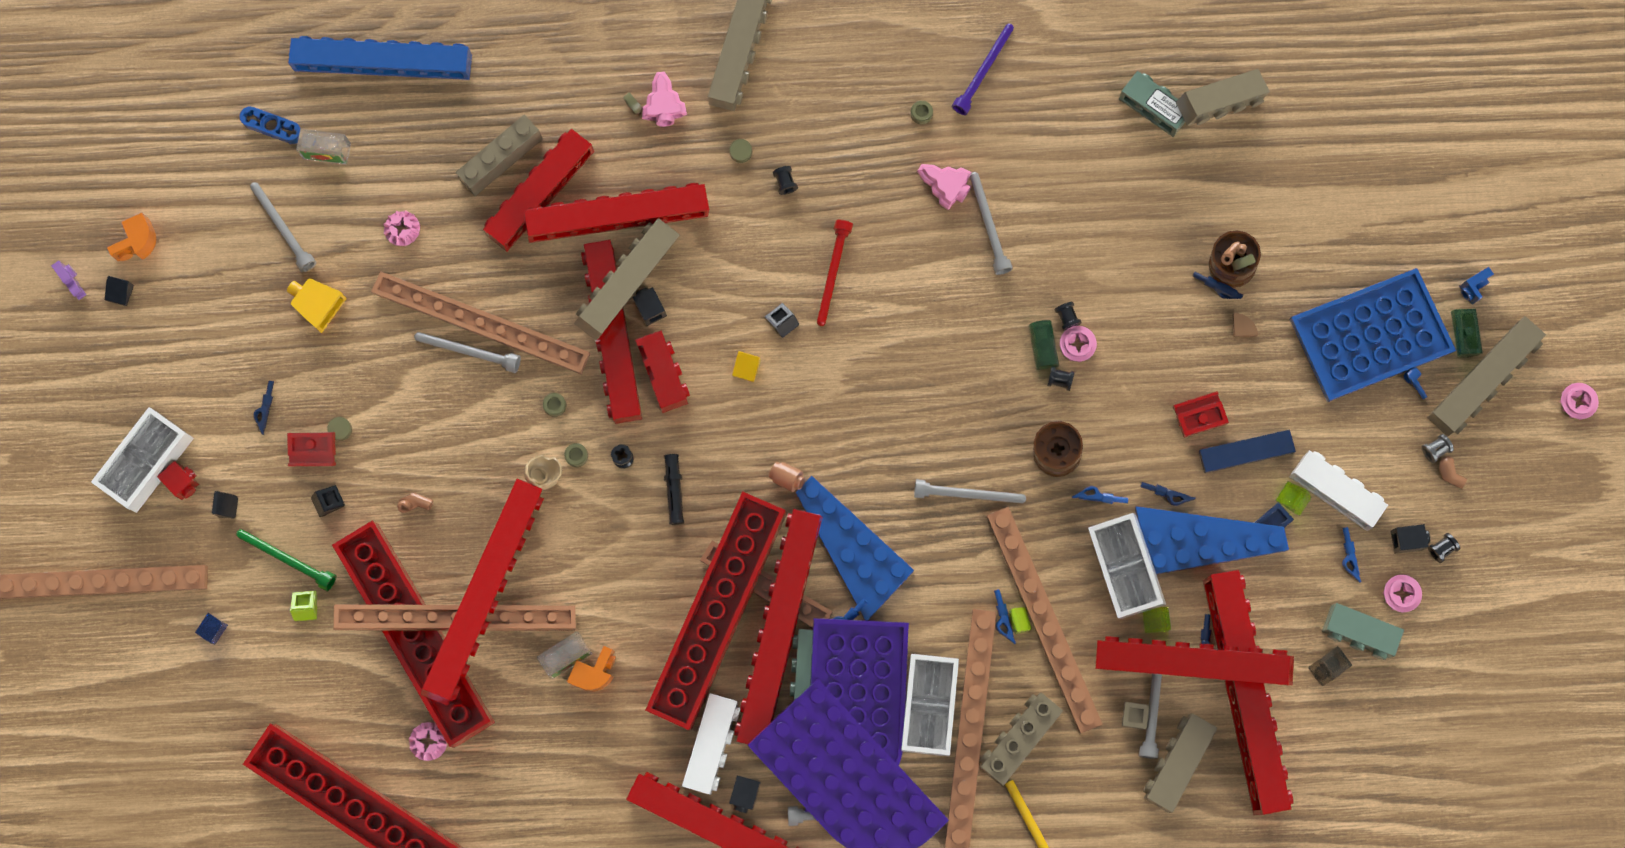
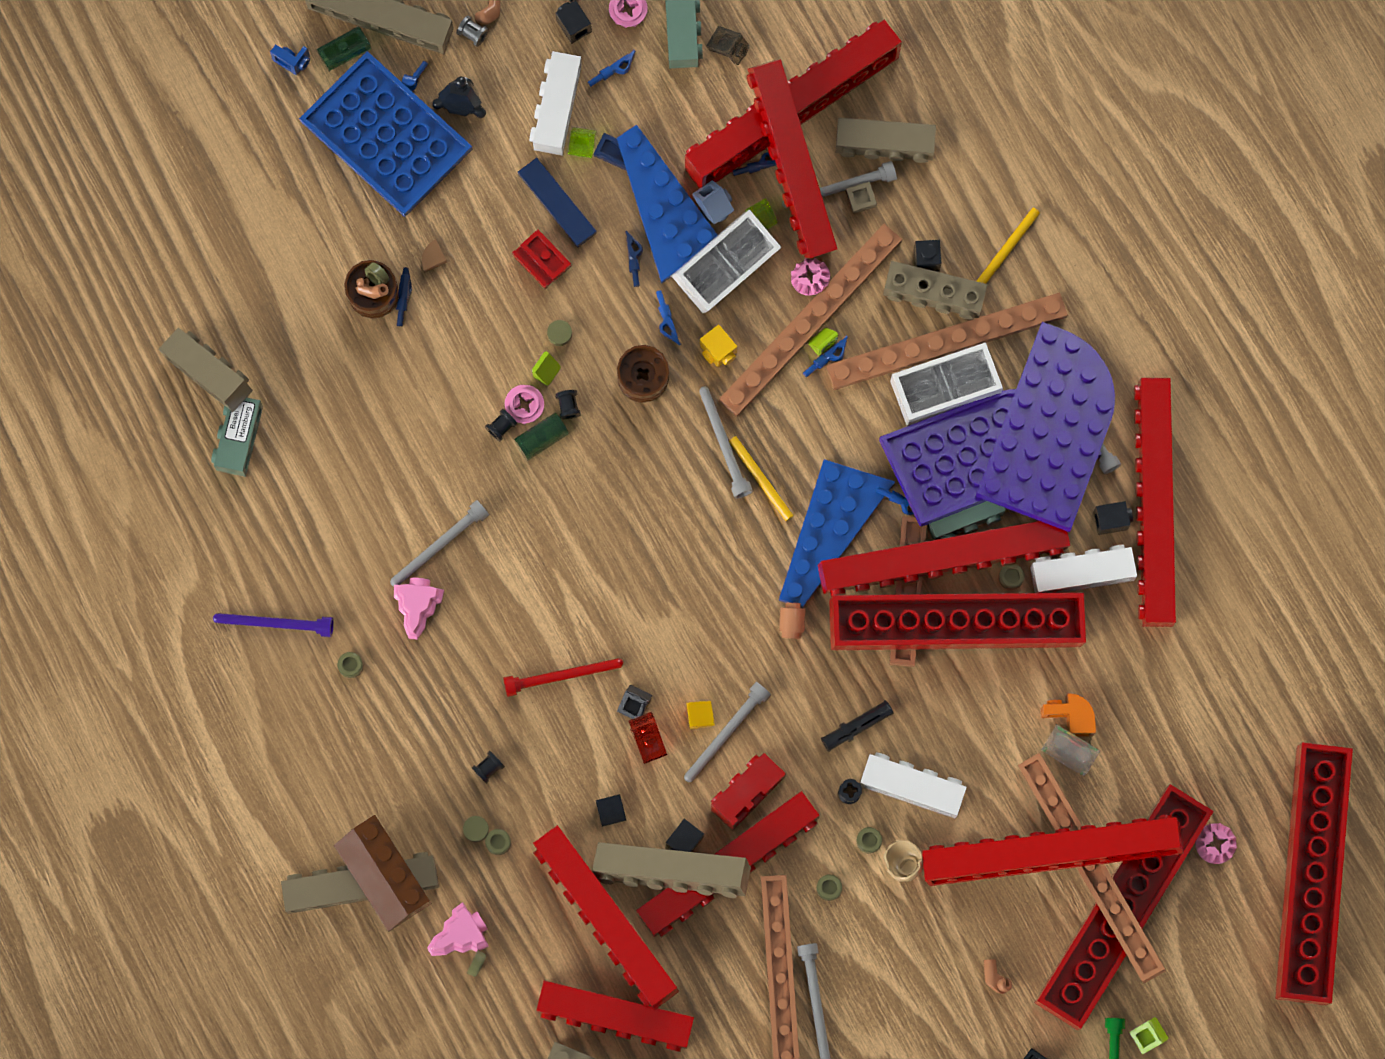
camera: 120 degrees left, 0 degrees up
(601, 509) = (913, 786): none -> white brick
(703, 261) = (611, 810): none -> black slope
(722, 163) = (498, 842): none -> olive tile
(736, 58) = (382, 873): none -> reddish brown slope
(736, 681) = (1011, 576): none -> olive tile
(739, 420) = (757, 695): none -> light grey piece
(746, 314) = (647, 737): none -> clear red slope
(922, 510) = (761, 478): none -> yellow bar
(1054, 526) = (718, 347): none -> yellow brick
(1054, 746) = (927, 255): none -> black brick
(1075, 642) = (820, 279): none -> bright pink gear
(1101, 374) = (546, 369): none -> lime slope
(1128, 401) = (559, 332): none -> olive tile
(1187, 582) = (714, 202): none -> sand blue brick
(1378, 410) = (460, 98): none -> black rock

